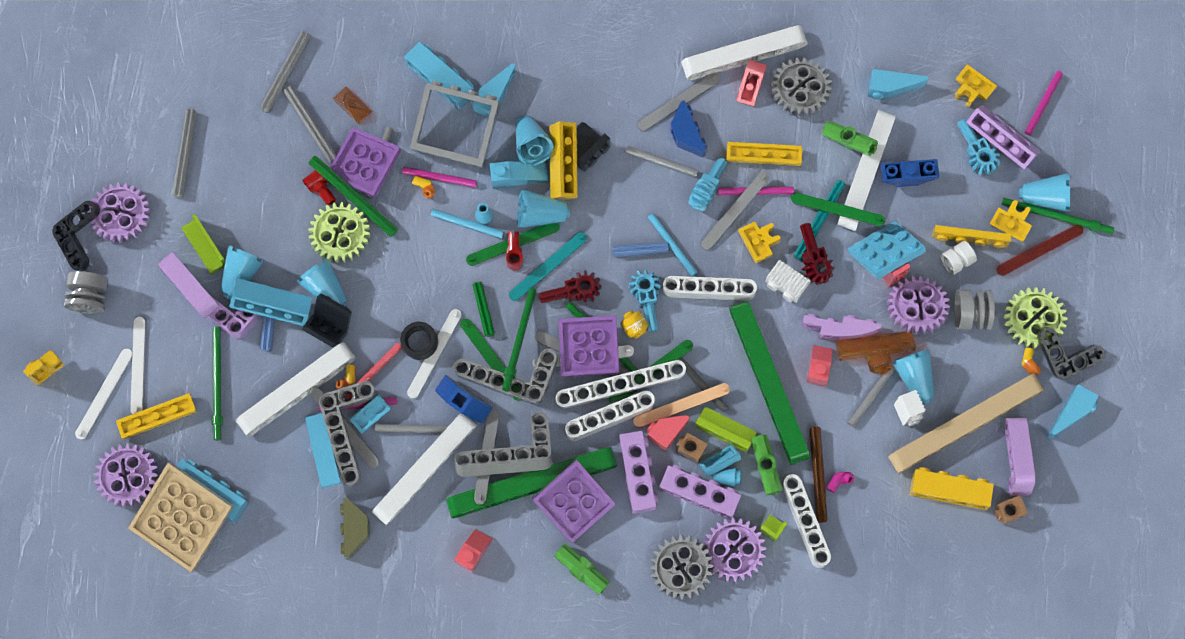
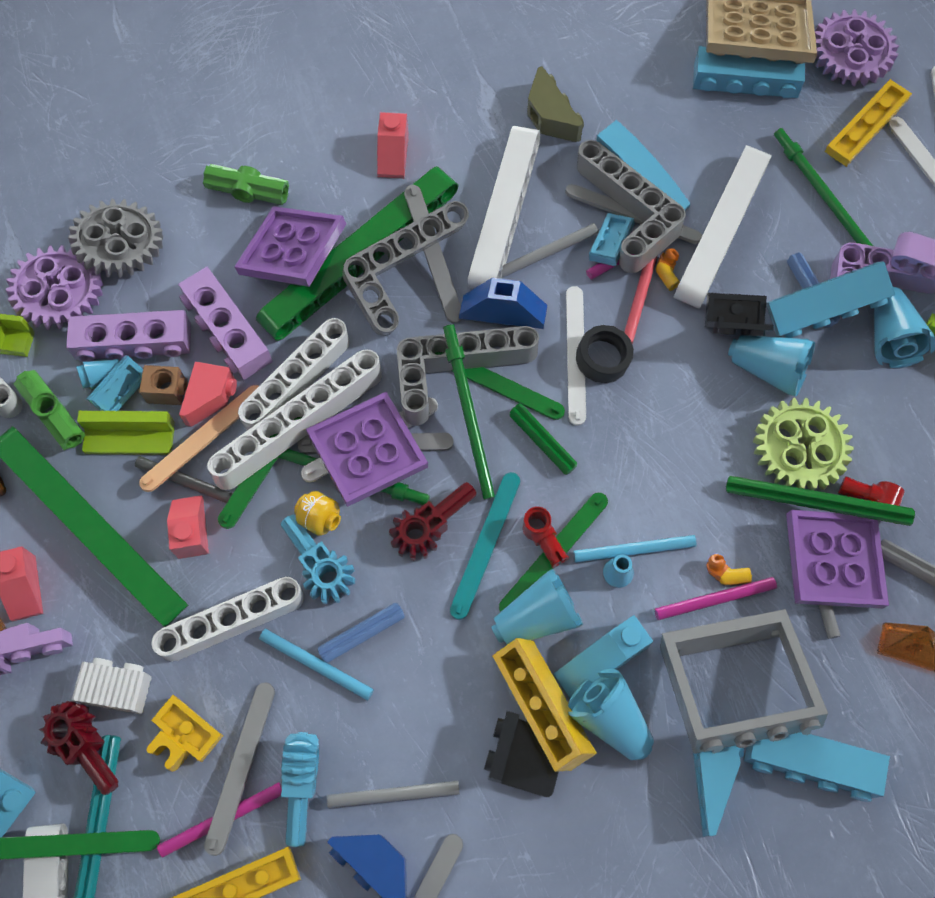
camera: 155 degrees right, 5 degrees down
(711, 353) = (187, 527): none -> coral slope

